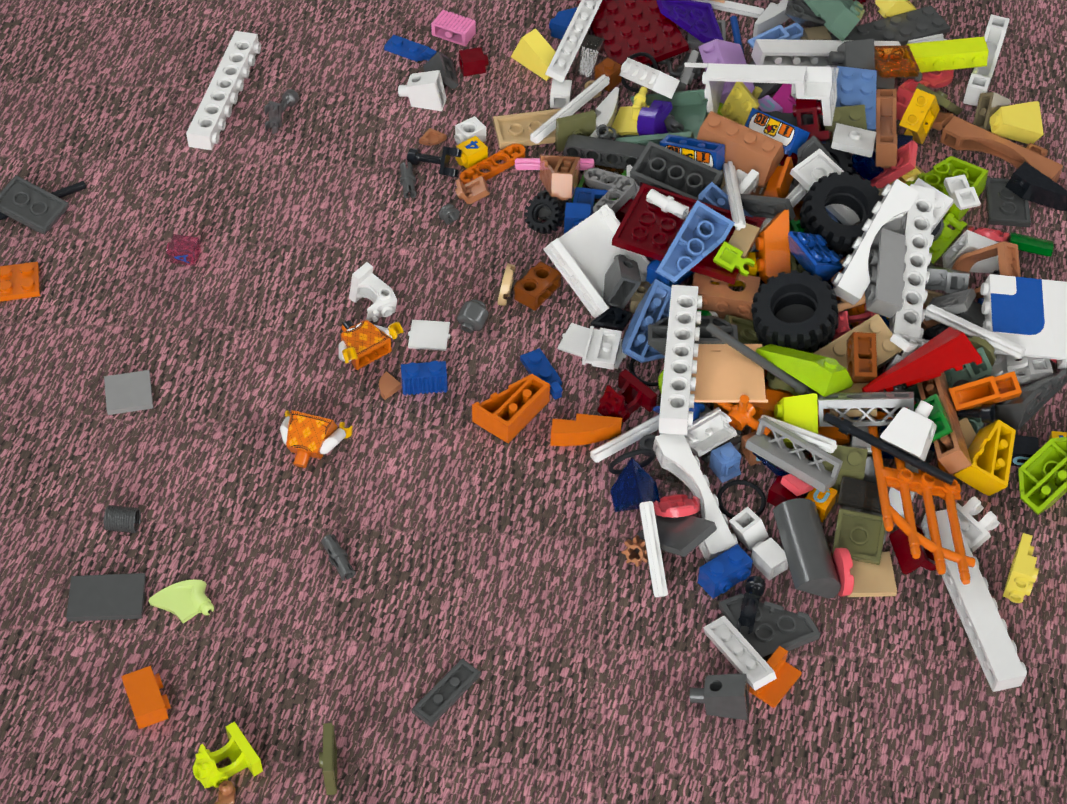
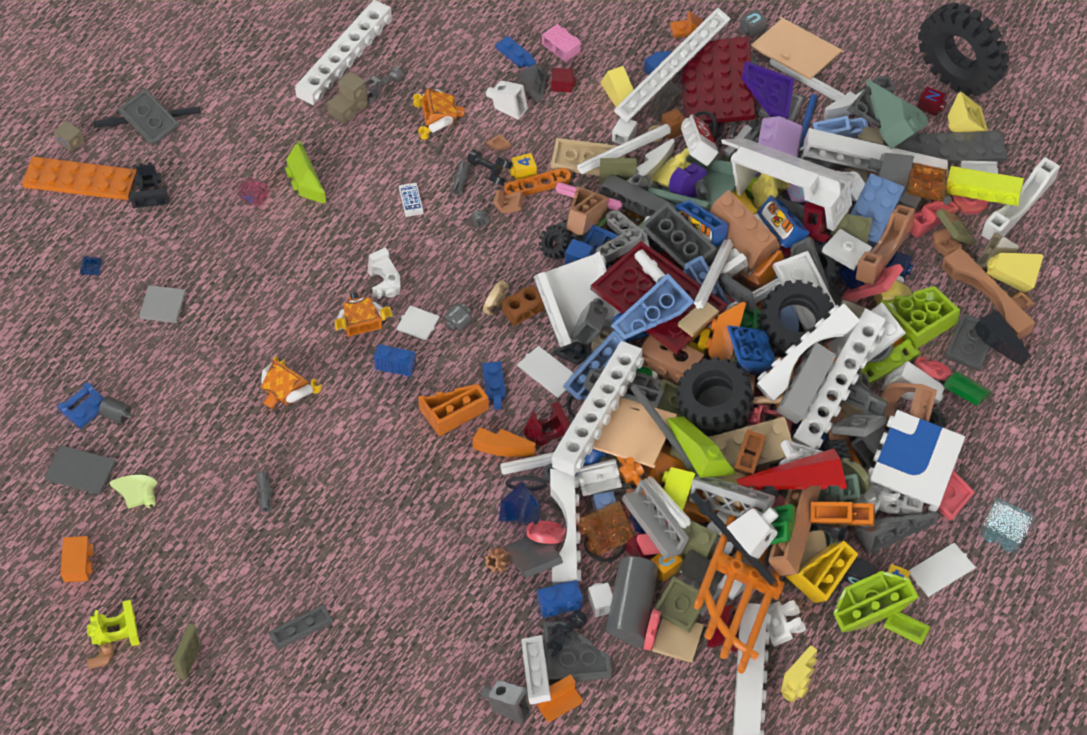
camera: 20 degrees right, 5 degrees up
(25, 374) = (91, 266): none -> clear blue tile
(55, 265) = (148, 177): none -> black tile
(85, 530) = (86, 410): none -> blue plate
(236, 218) = (303, 175): none -> lime wedge
(252, 132) = (350, 99): none -> dark tan brick
(354, 119) = (438, 110): none -> torso
(363, 215) = (410, 199): none -> tile
(388, 385) = (365, 357): nougat tile -> none
(469, 129) = (532, 145): white brick -> none
(602, 347) = (550, 376): white plate -> none
(653, 549) = (507, 563): white axle -> none
(730, 257) = (679, 332): lime plate -> none
(740, 482) = (606, 528): none -> clear orange plate
(748, 528) = (594, 569): white brick -> none
(921, 110) = (921, 239): yellow panel -> none
(961, 192) = (923, 324): white slope -> none
(970, 329) = (861, 457): white axle -> none

